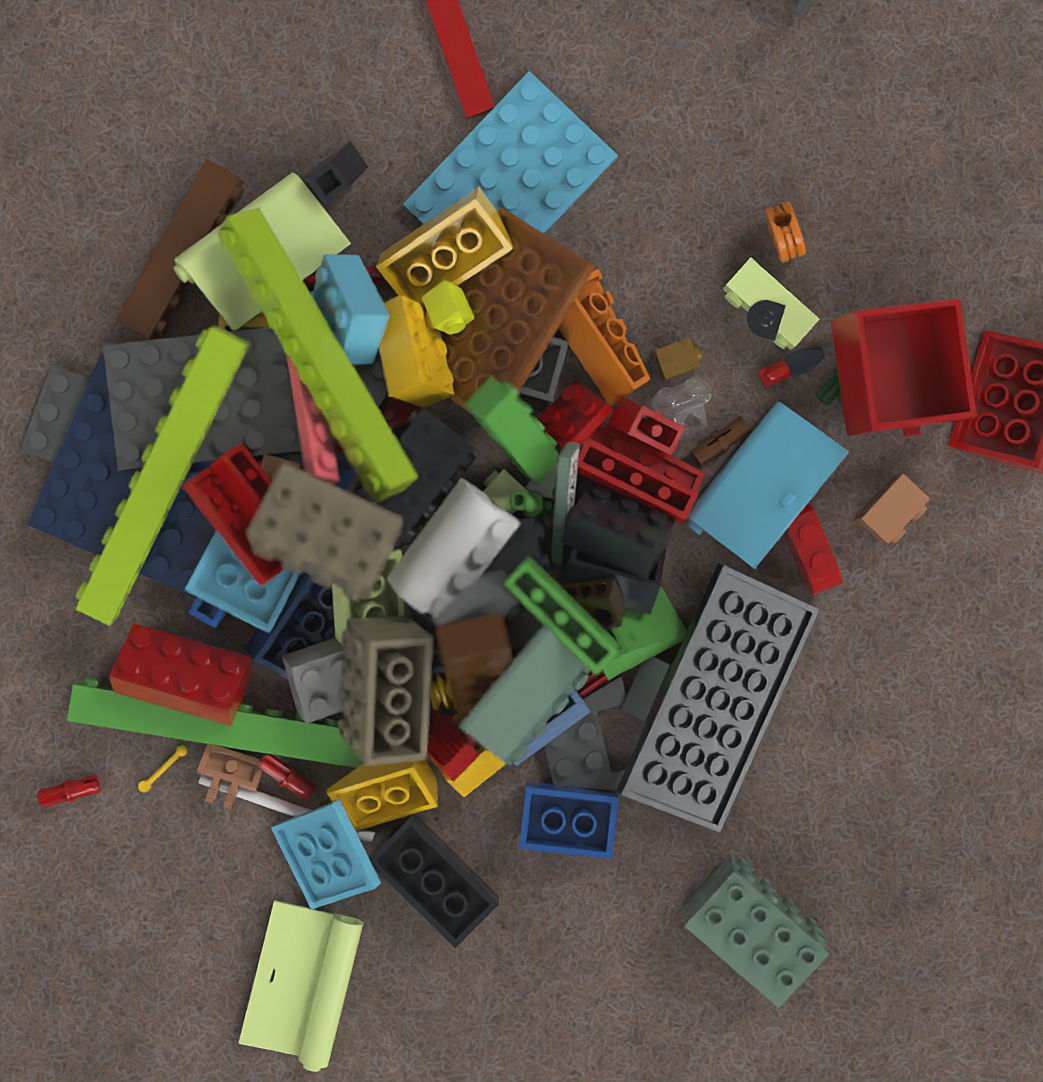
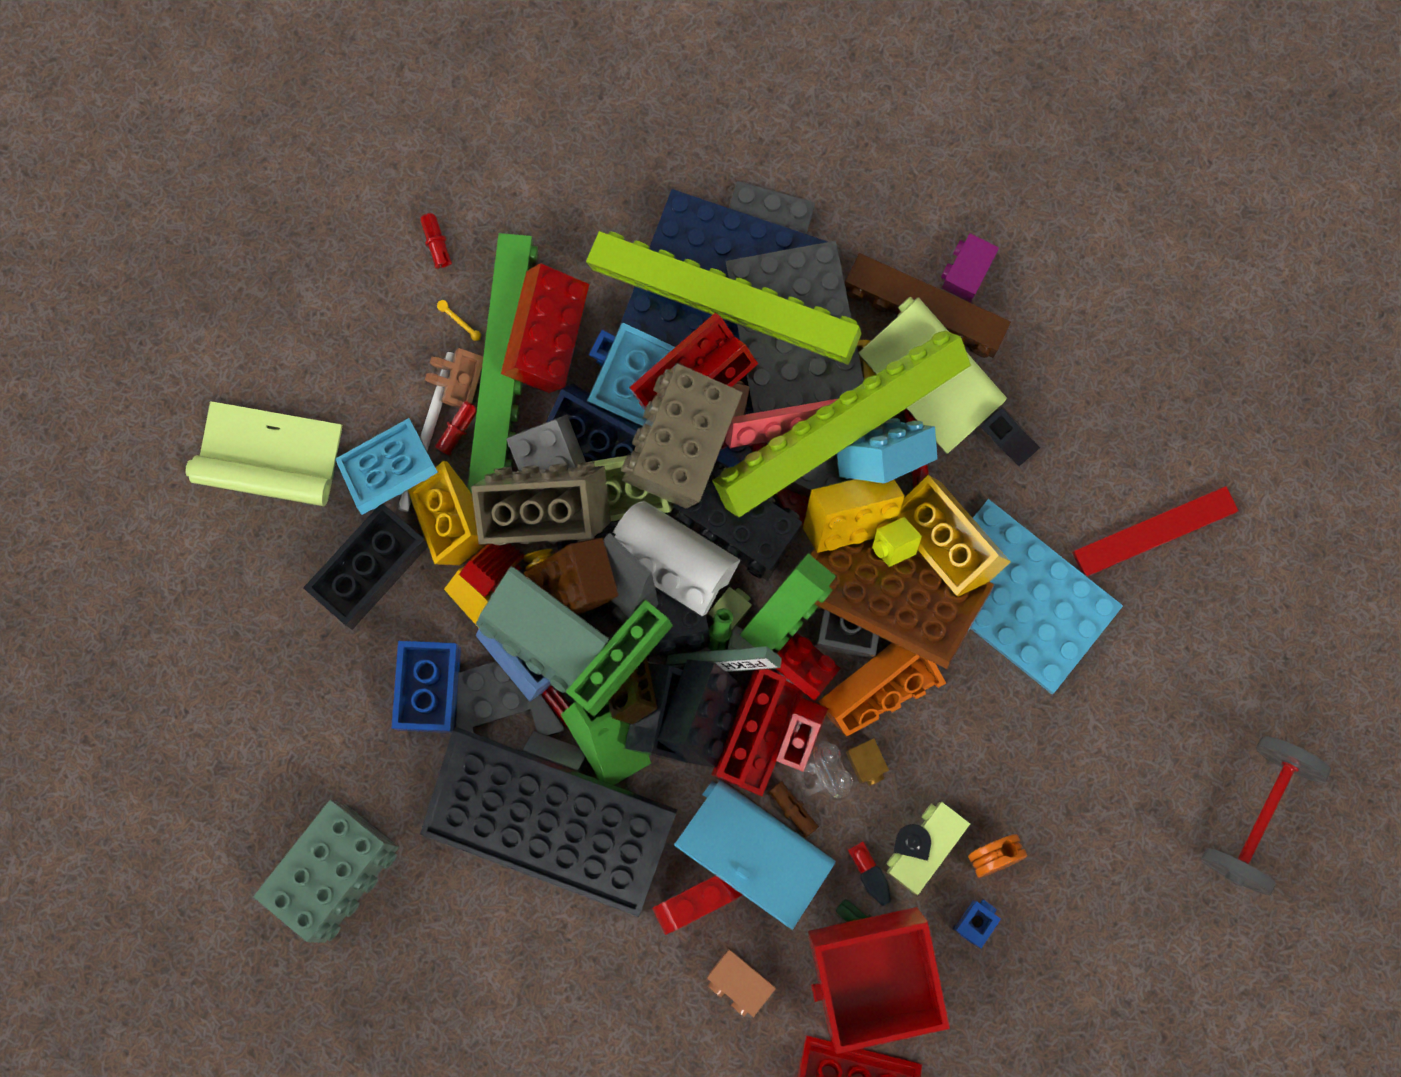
camera: 85 degrees right, 10 degrees down
(140, 198) = (969, 268): none -> magenta brick
(861, 259) = (980, 934): none -> blue brick

